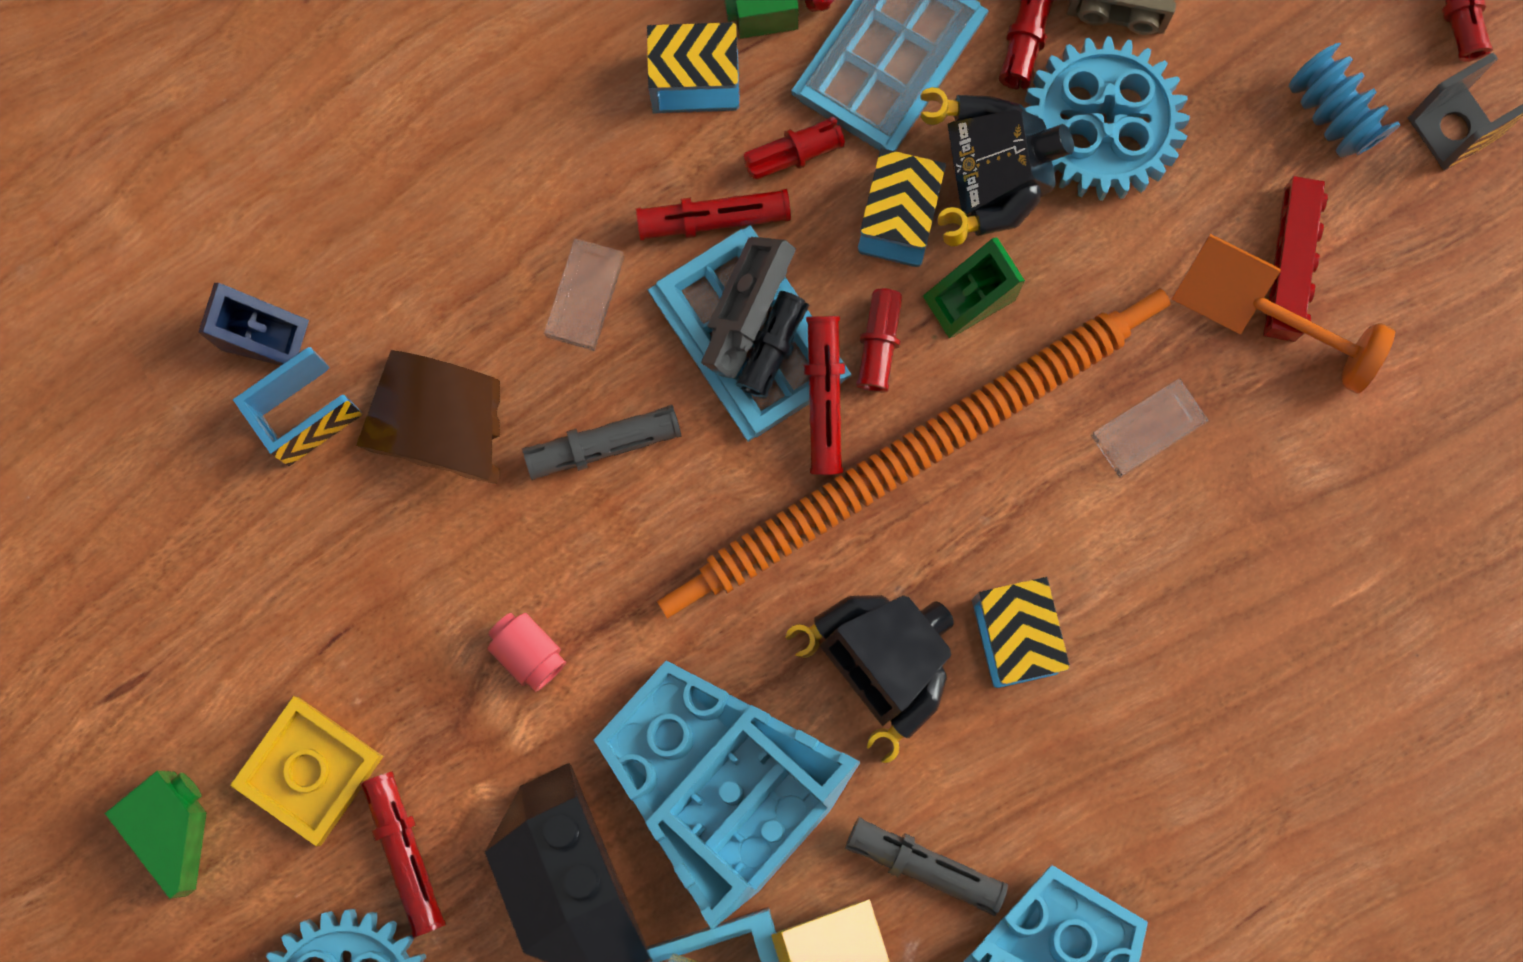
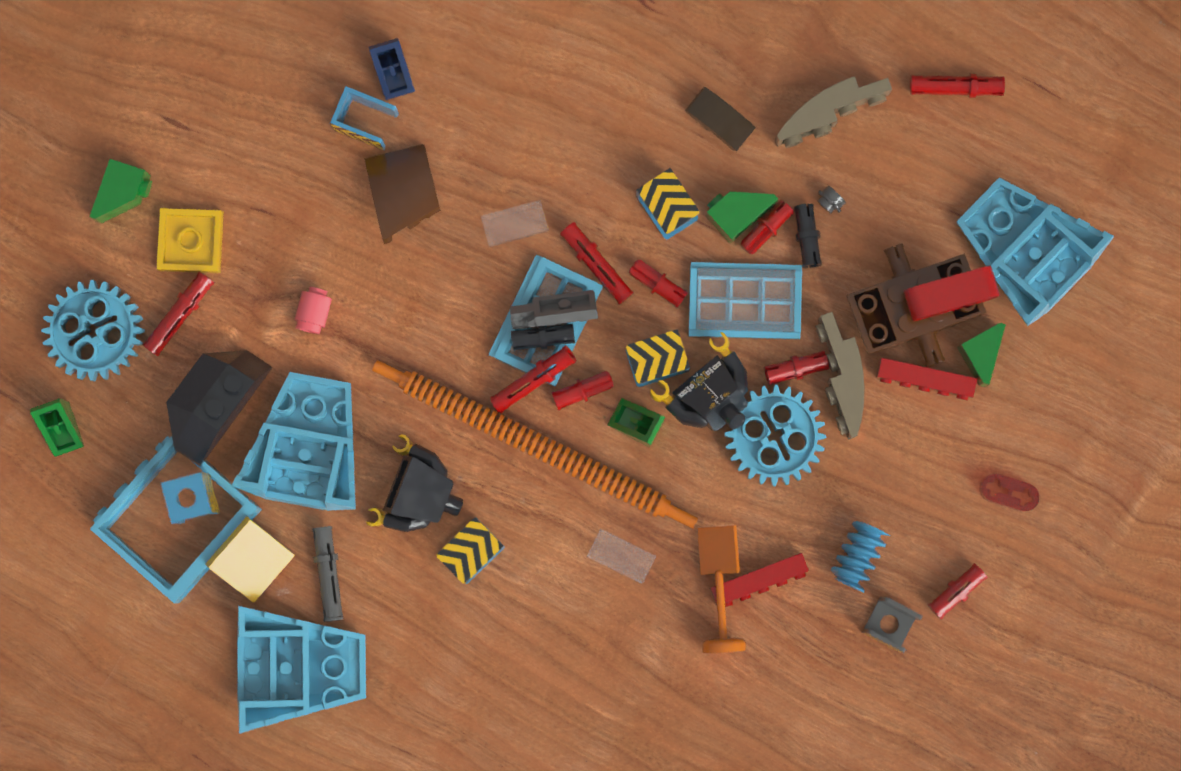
camera: 60 degrees right, 5 degrees up
(589, 446) = (435, 276): dark grey pin -> none

